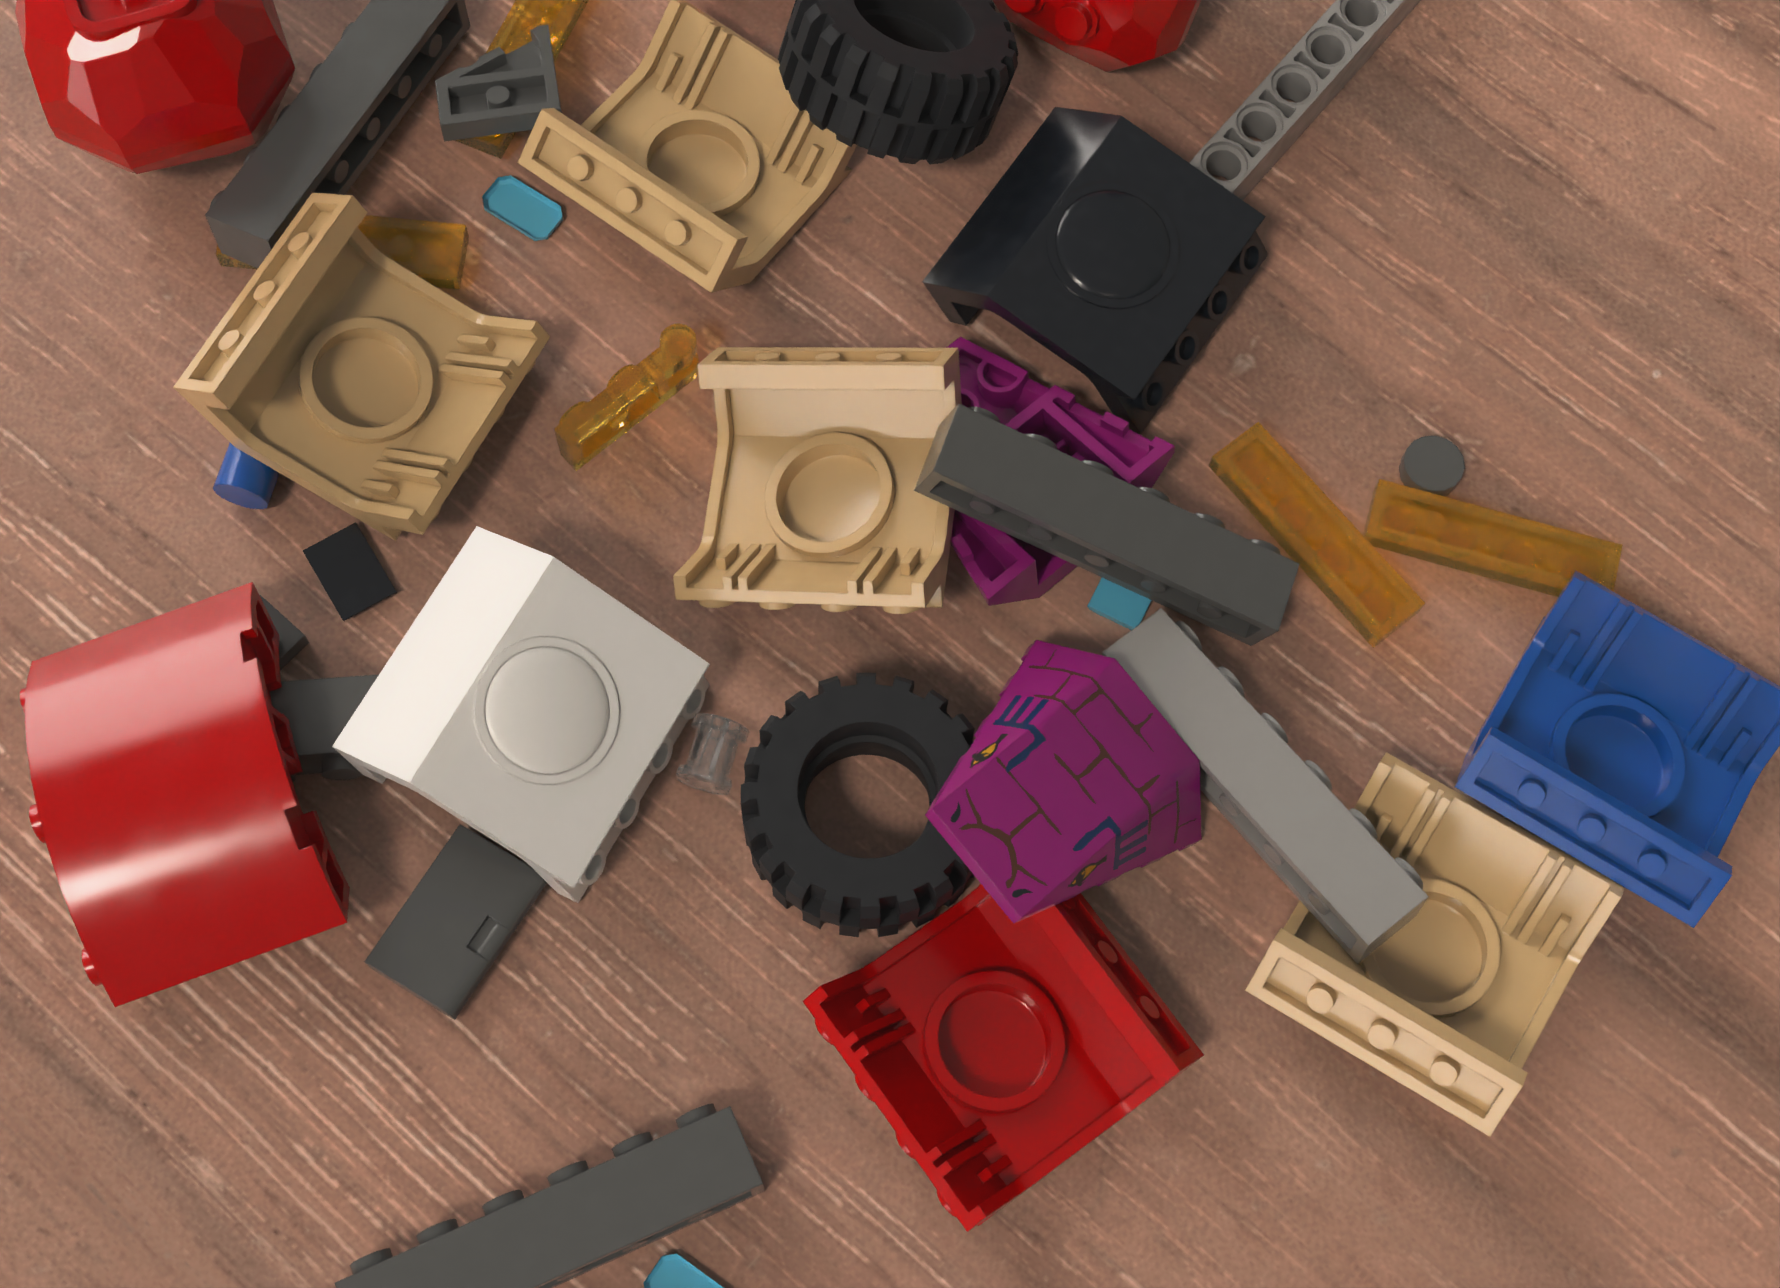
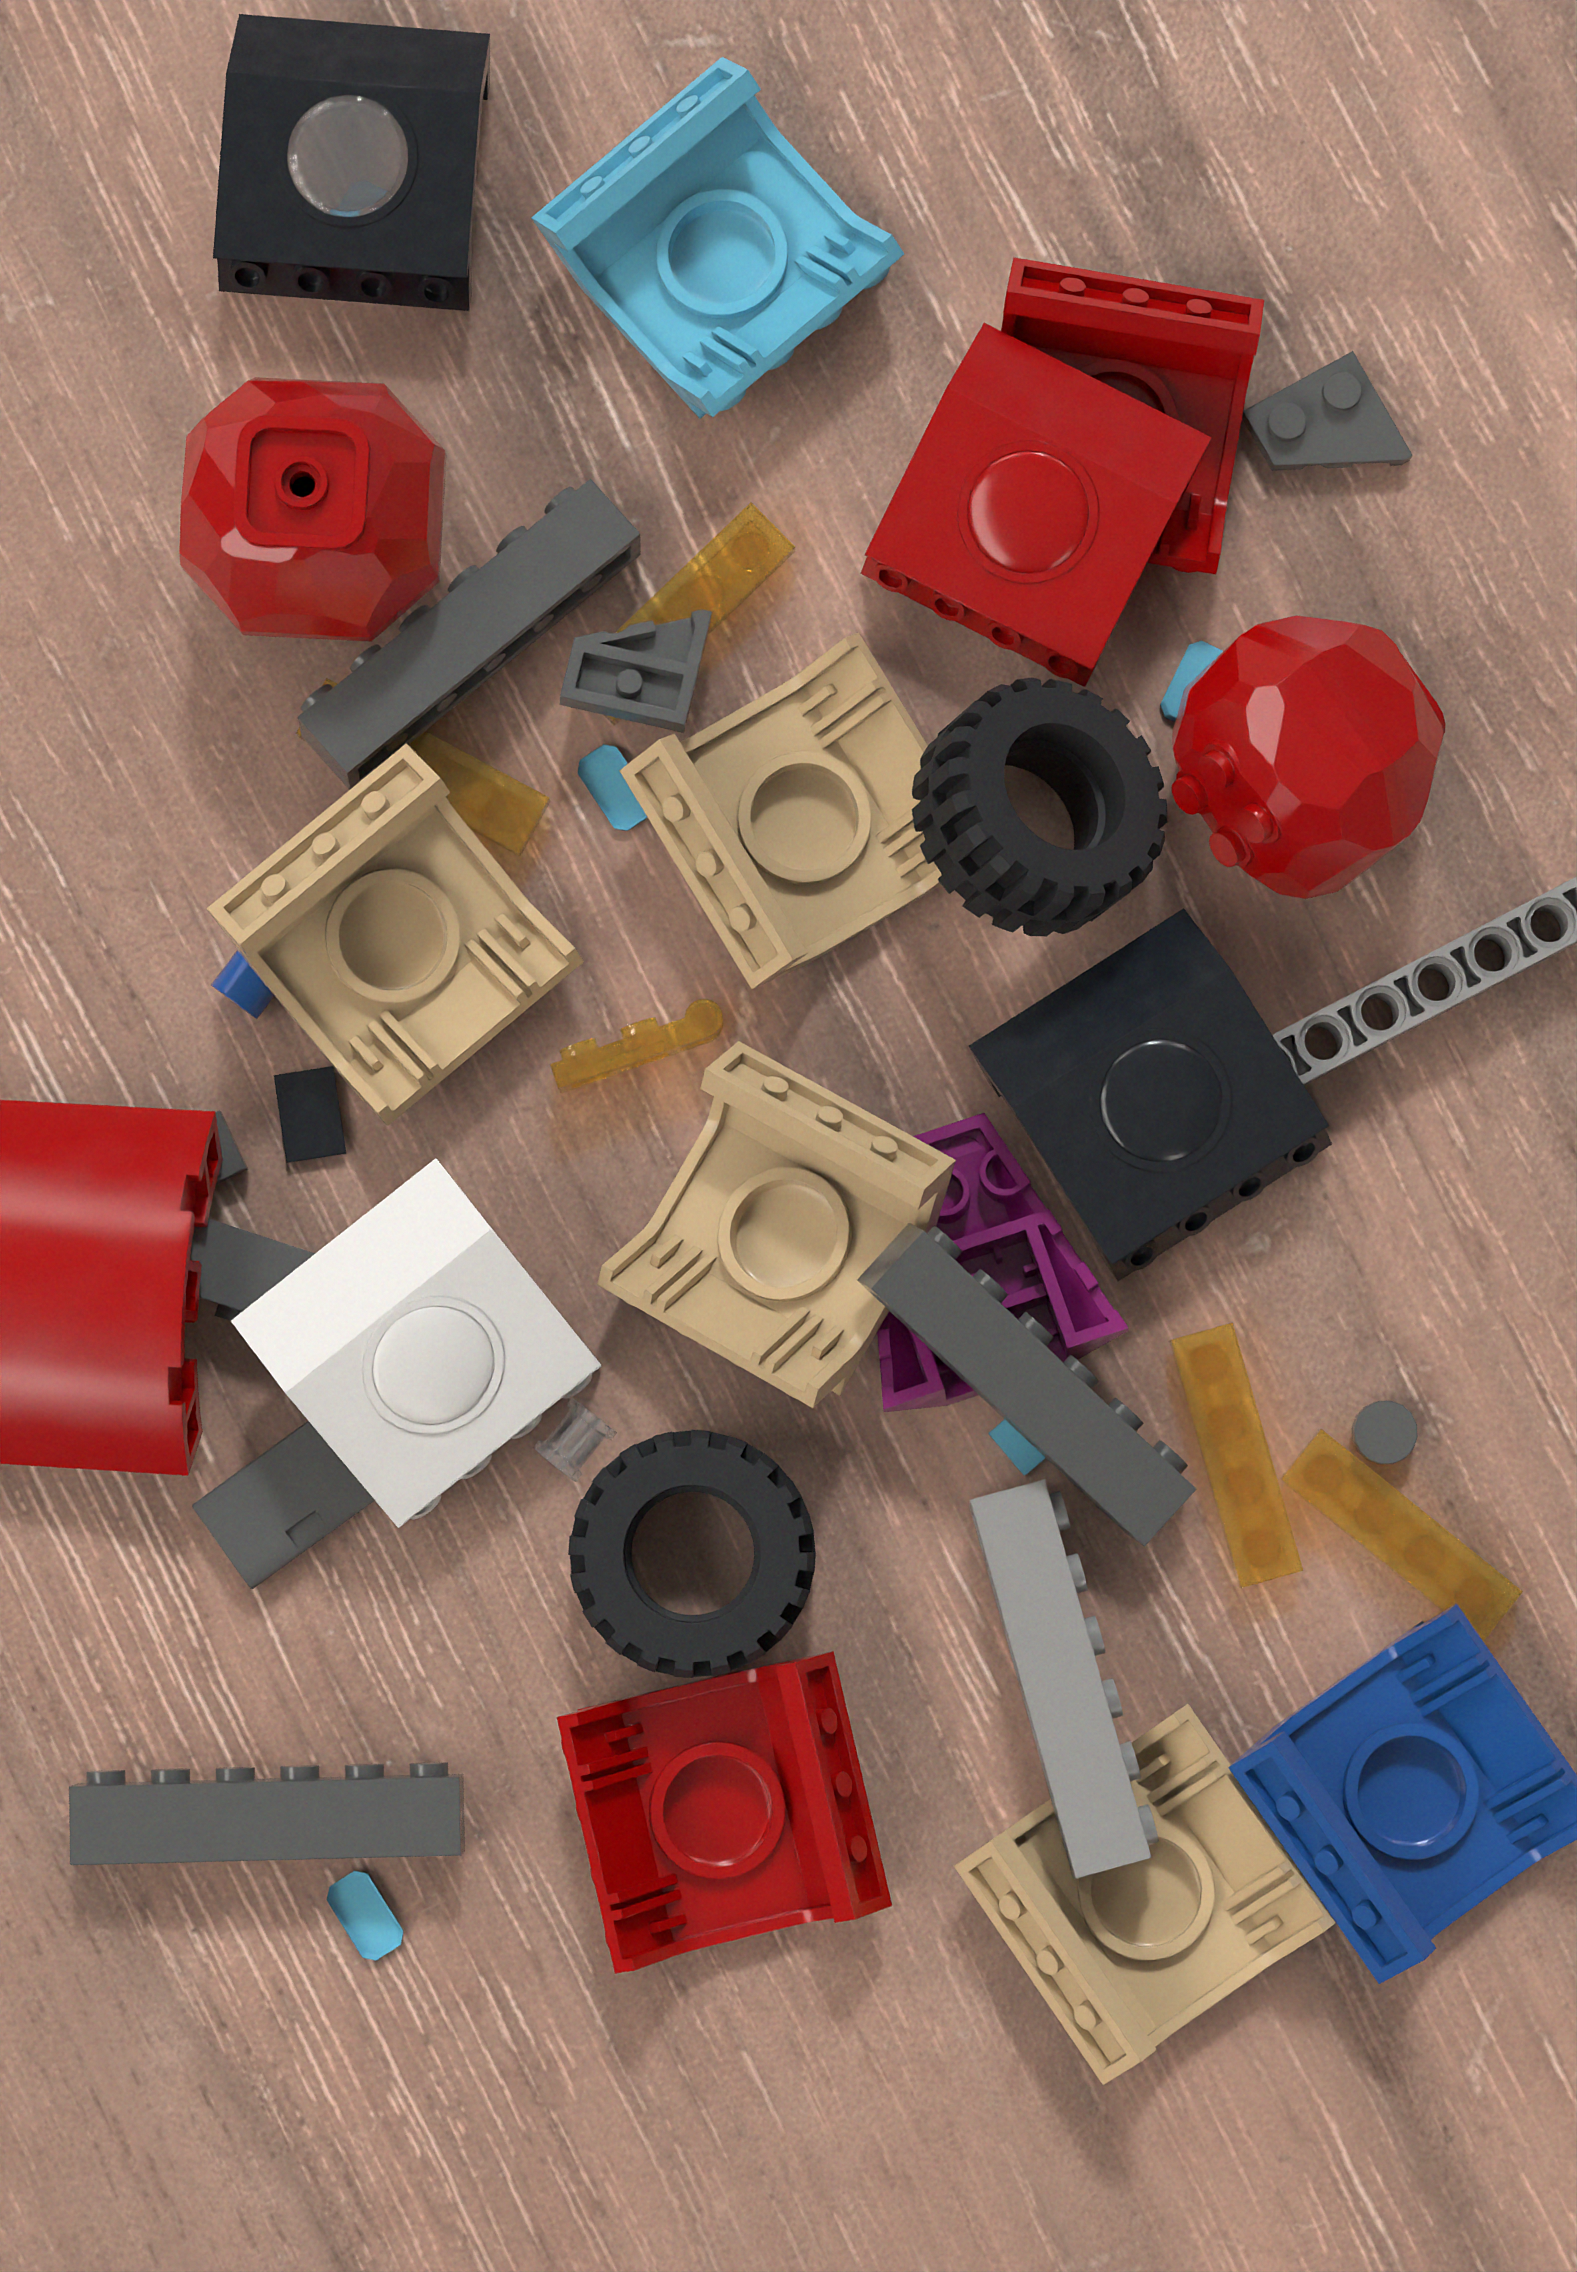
camera: 25 degrees right, 15 degrees up
(1068, 783) = (873, 1617): magenta wedge -> none

